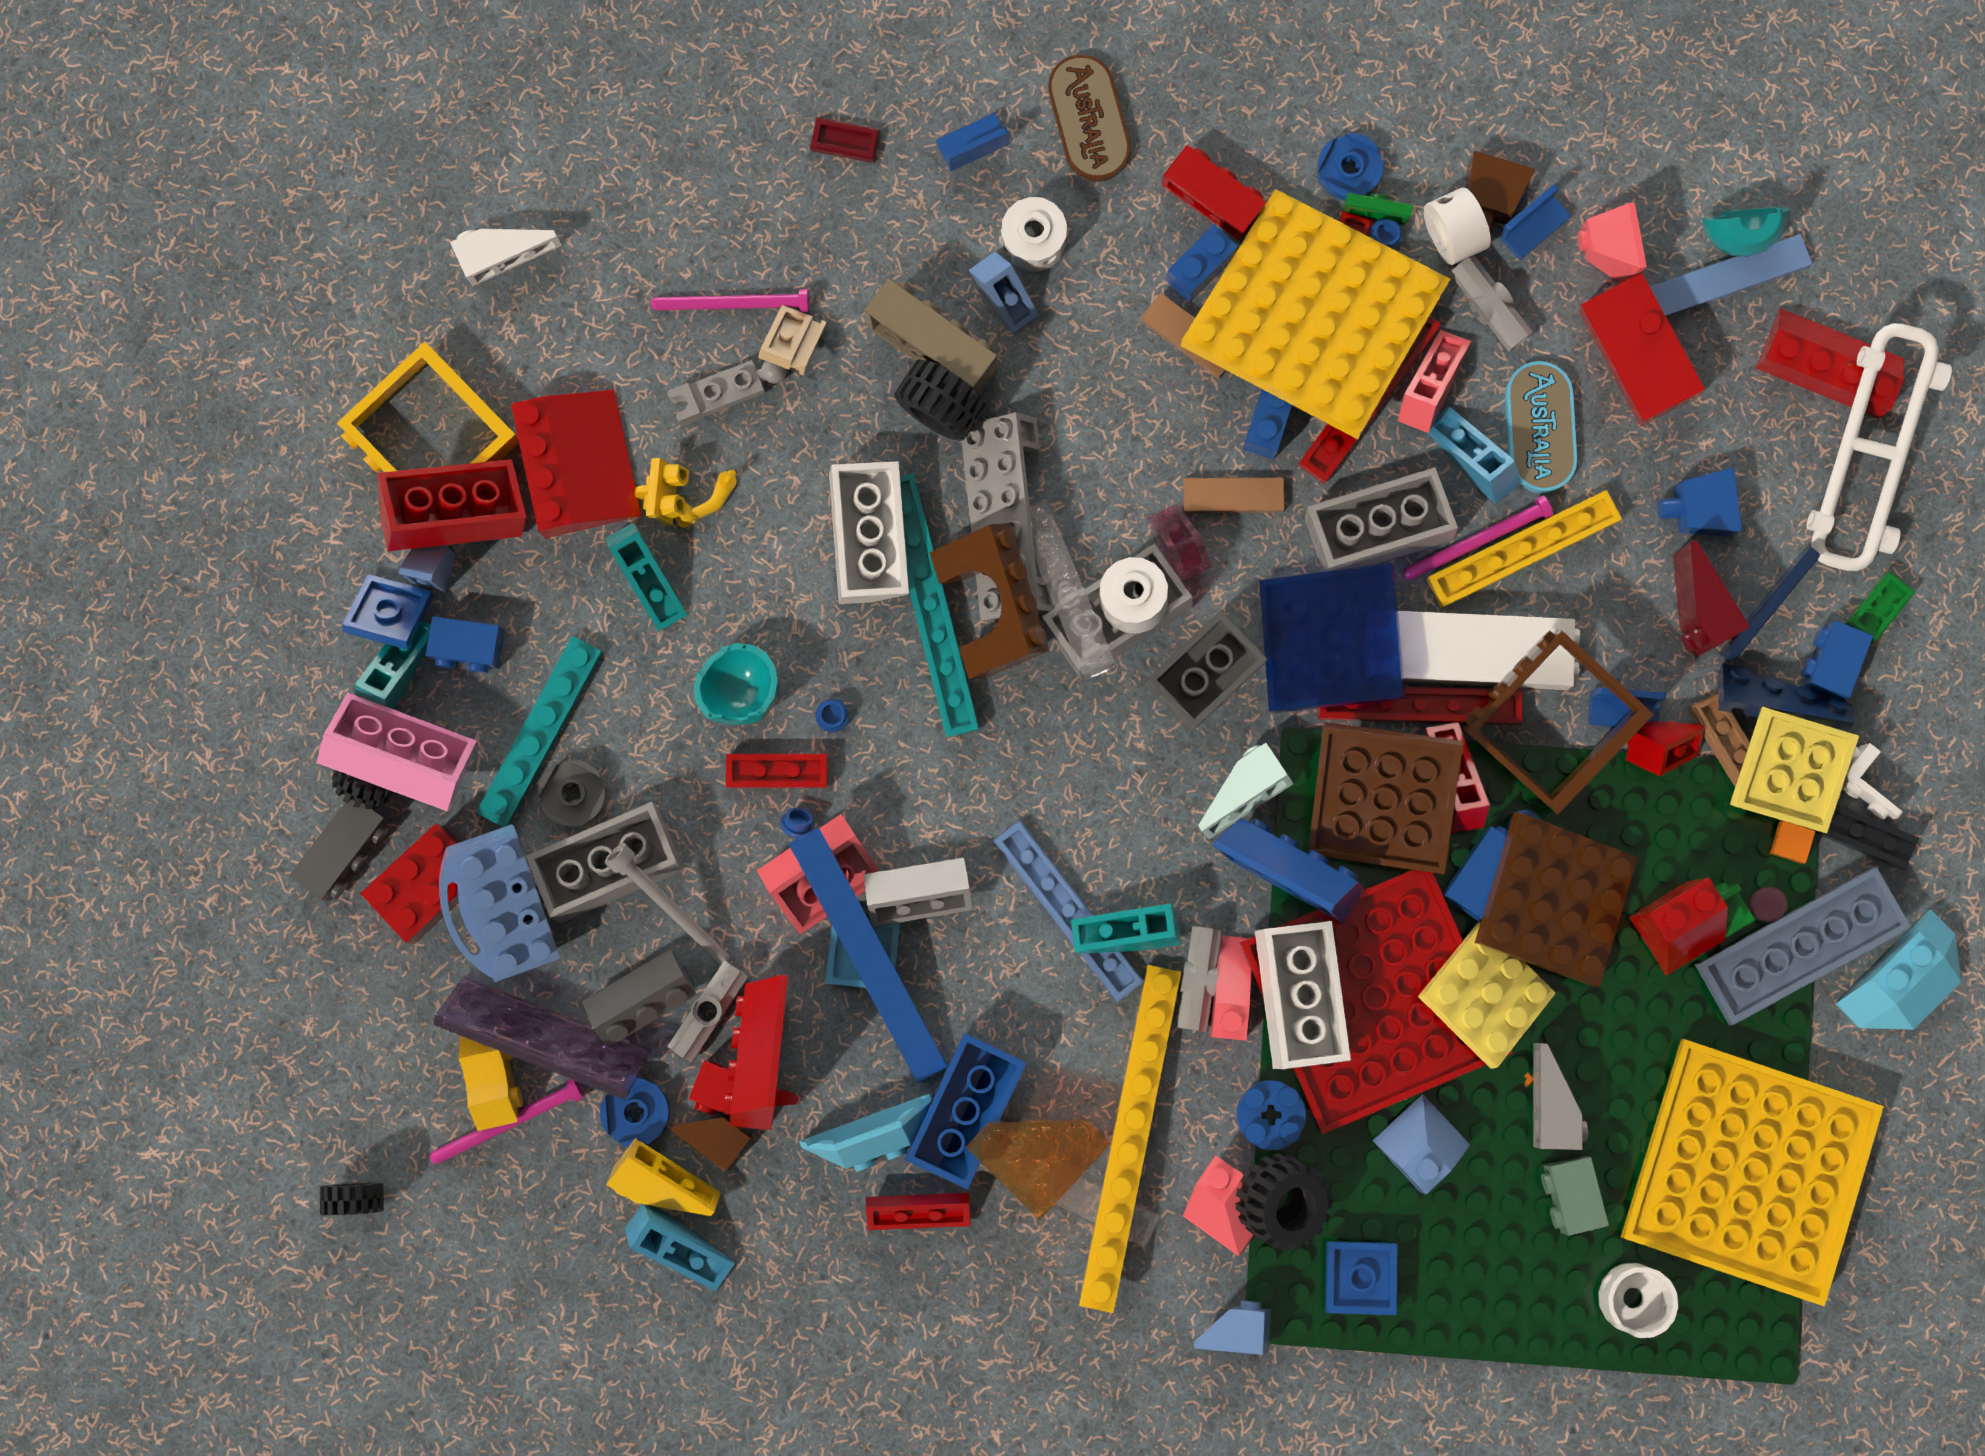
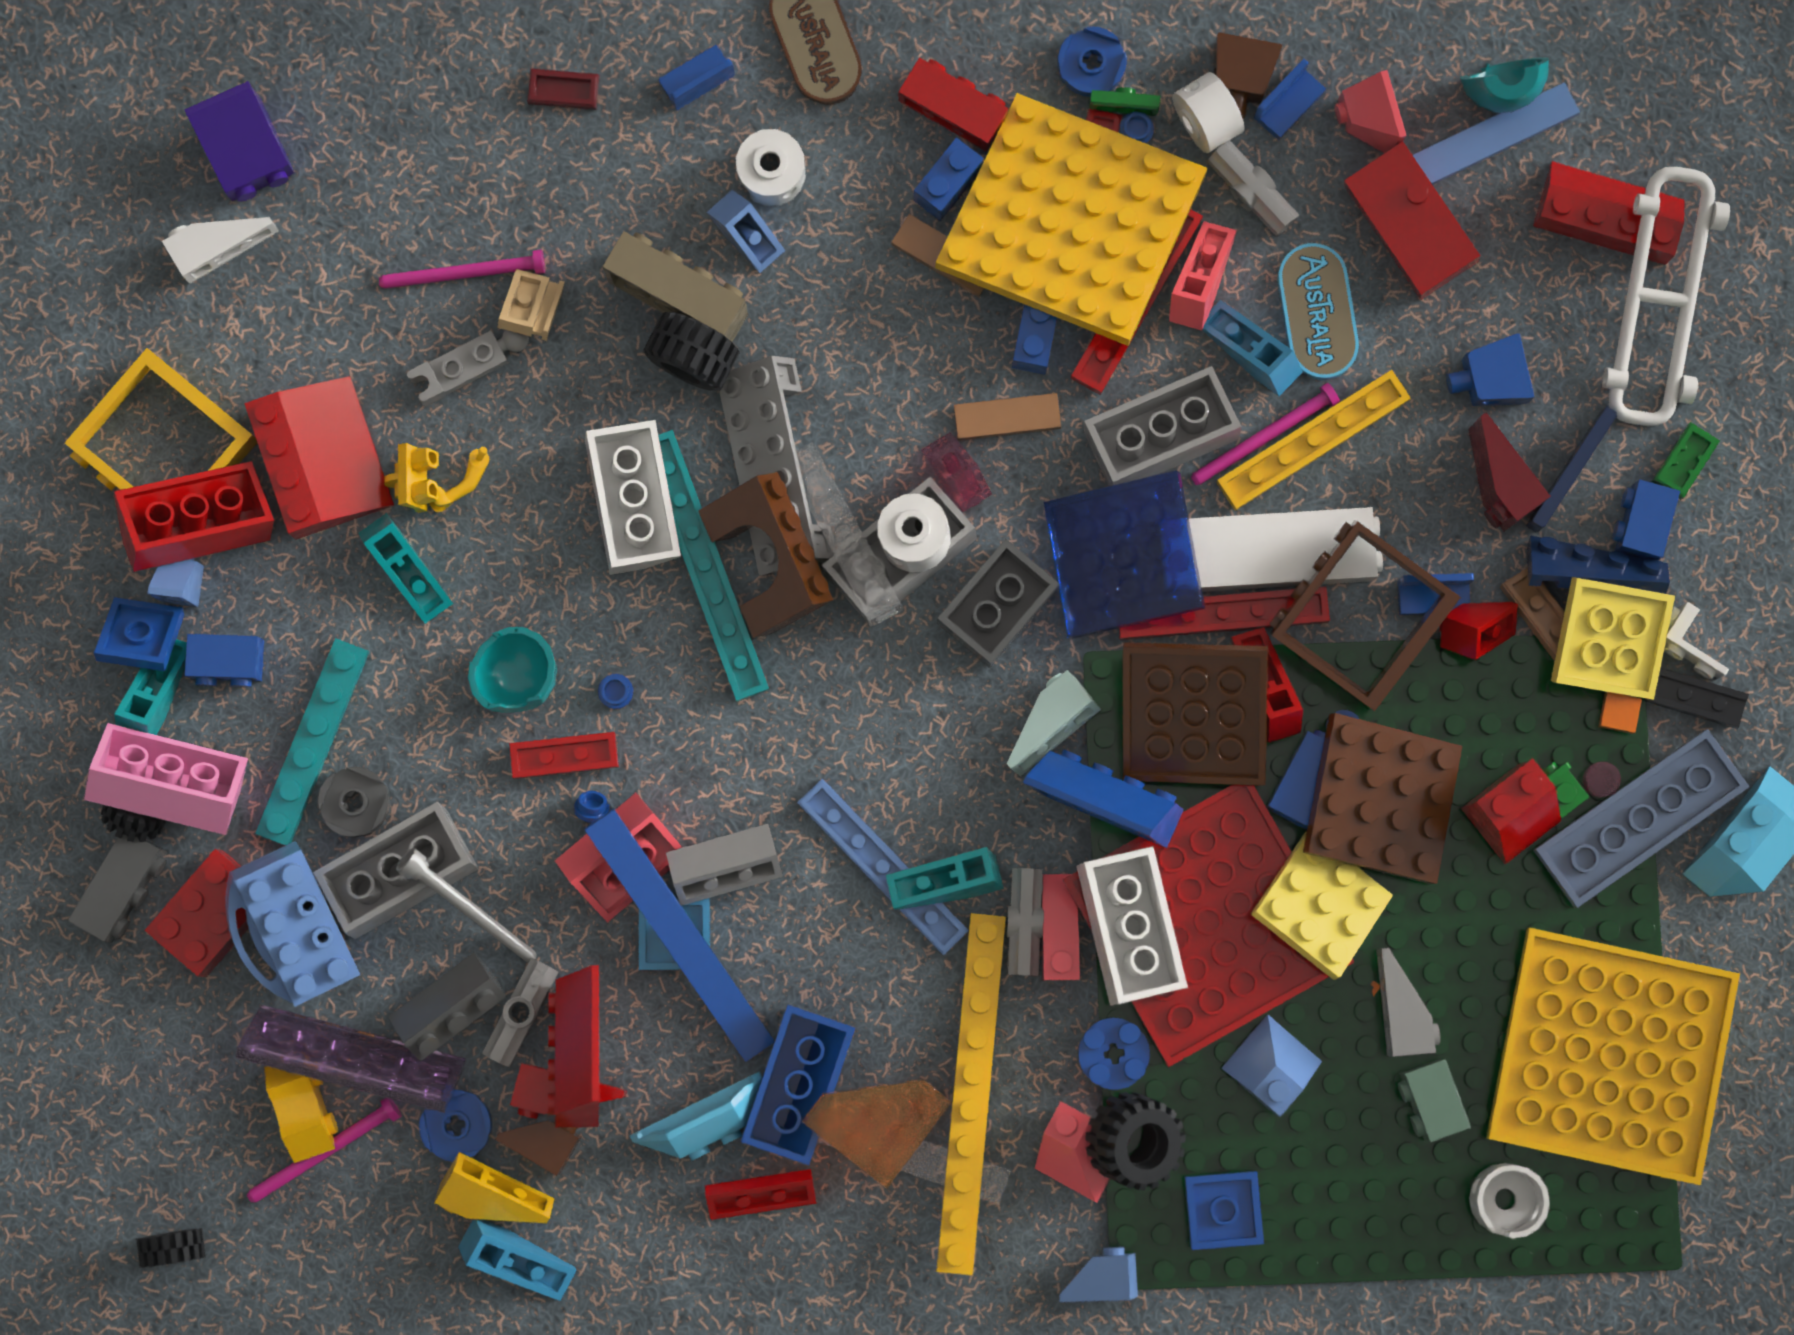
camera: 10 degrees left, 0 degrees up
(534, 156) = (240, 142): none -> dark purple slope

